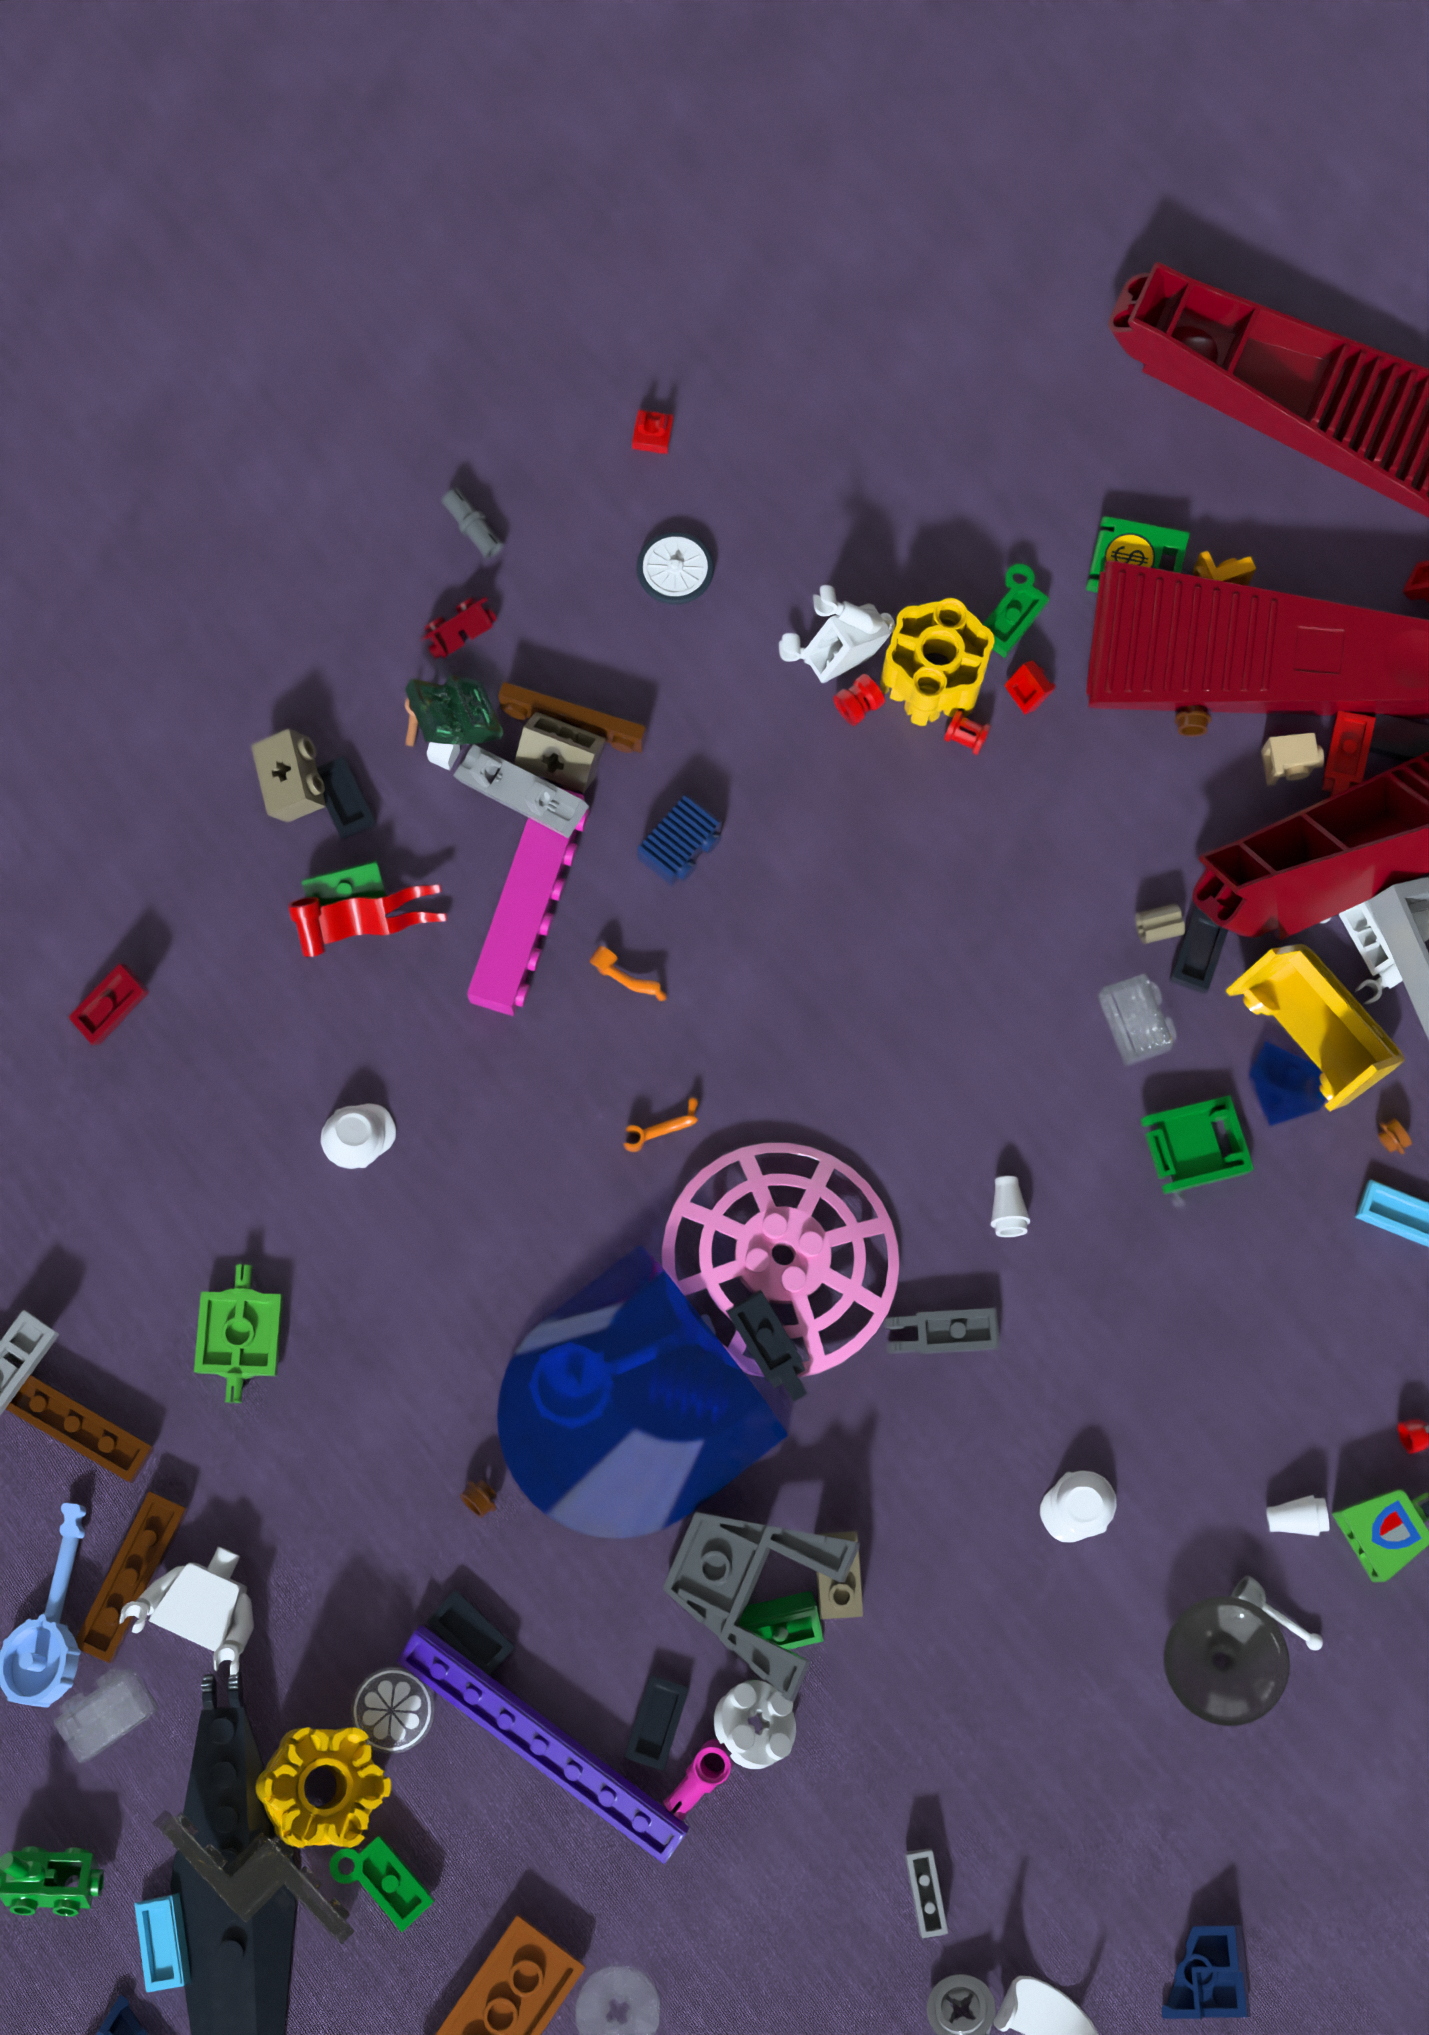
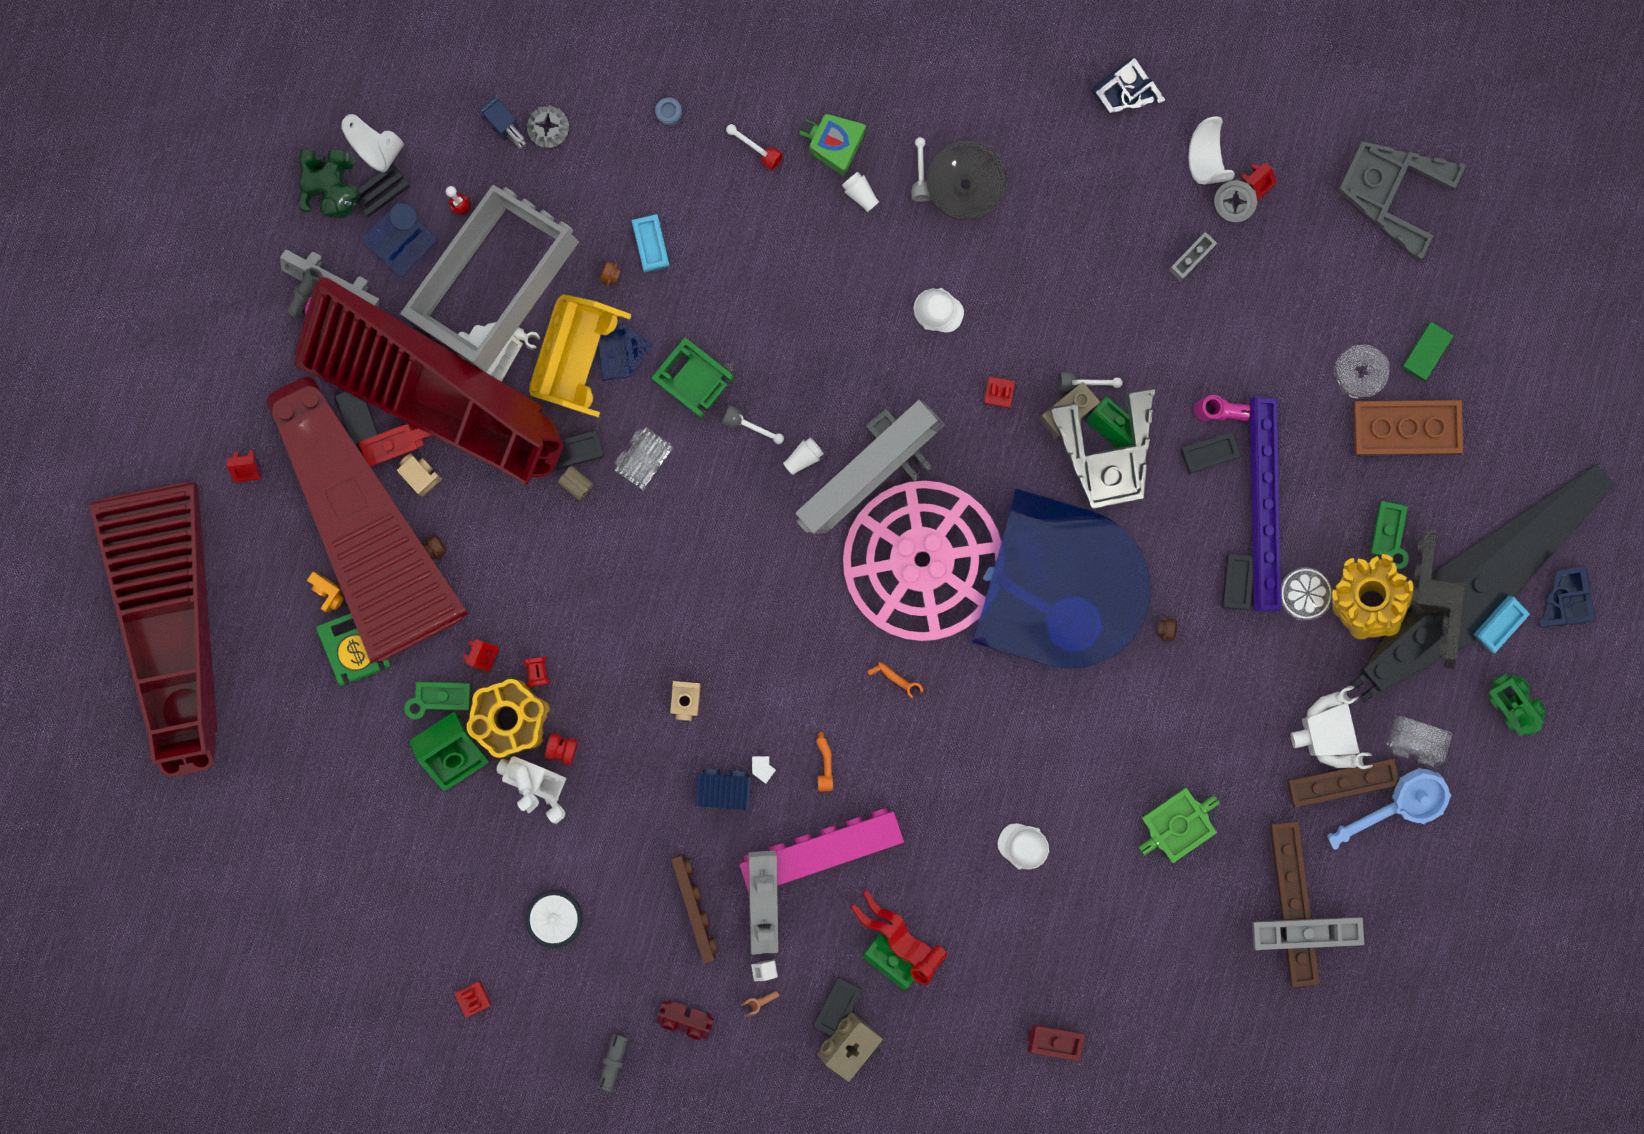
camera: 125 degrees left, 10 degrees up
(453, 711) = (741, 979): clear green slope -> none
(559, 752) = (721, 899): dark tan brick -> none
(673, 902) = (761, 767): none -> white piece
(768, 1343) = (978, 531): black hinge -> none
(777, 1720) = (1188, 404): white plate -> none
(819, 883) = (687, 689): none -> tan brick
(875, 1606) = (1068, 381): none -> hinge
(922, 1506) = (999, 392): none -> red tile
(940, 1259) = (869, 469): none -> light grey window
(947, 569) = (448, 751): none -> green slope
(1113, 1159) = (734, 418): none -> hinge

